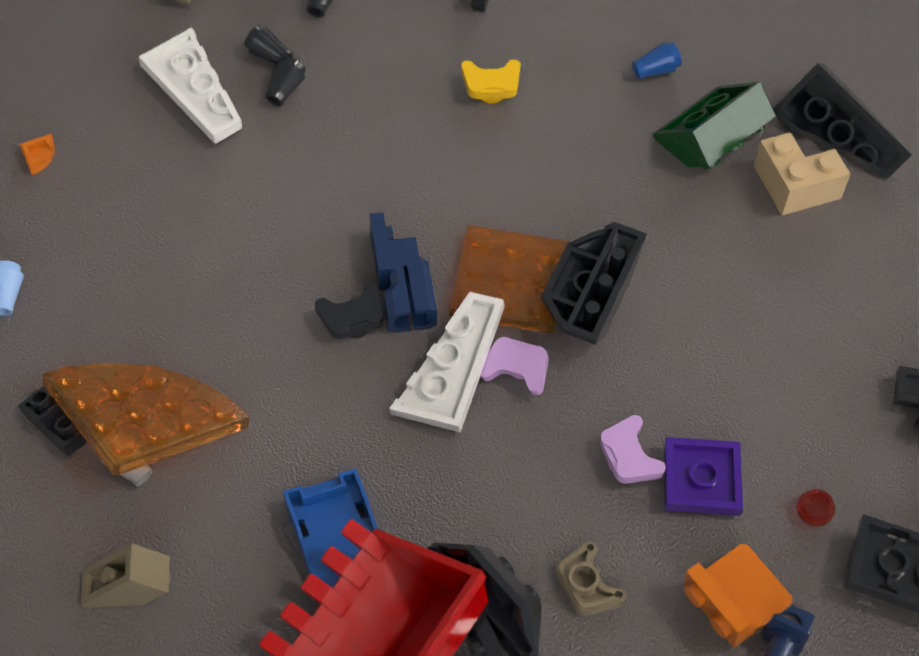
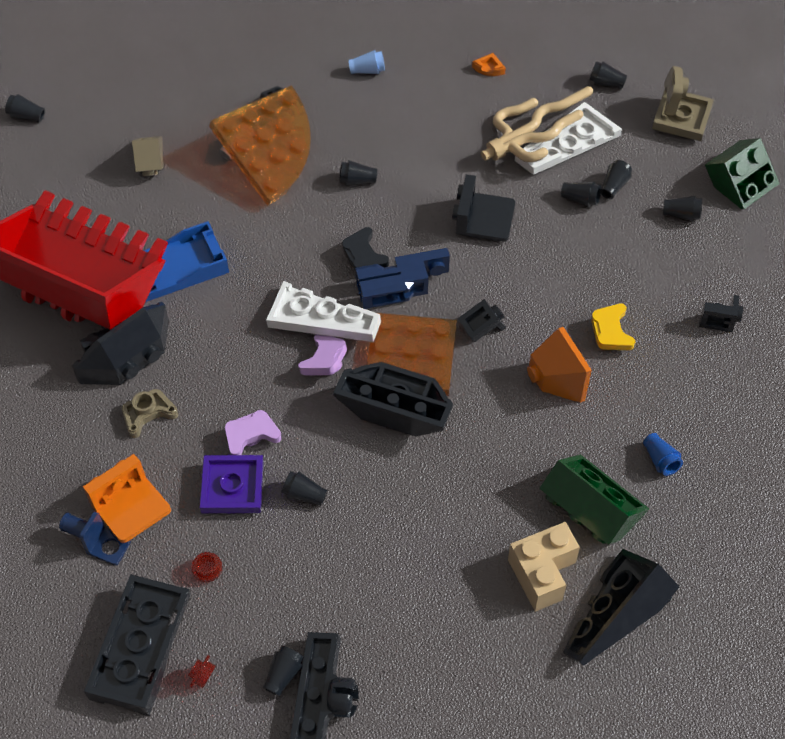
camera: 90 degrees right, 0 degrees up
(91, 33) = (606, 75): none -> black cone
(192, 139) = (514, 139): none -> tan plant
(212, 315) = (355, 173): none -> black cone
(303, 181) = (482, 214): none -> black bracket
(472, 198) = (482, 319): none -> black bracket
(552, 123) = (560, 367): none -> orange slope
(707, 400) = (303, 489): none -> black cone

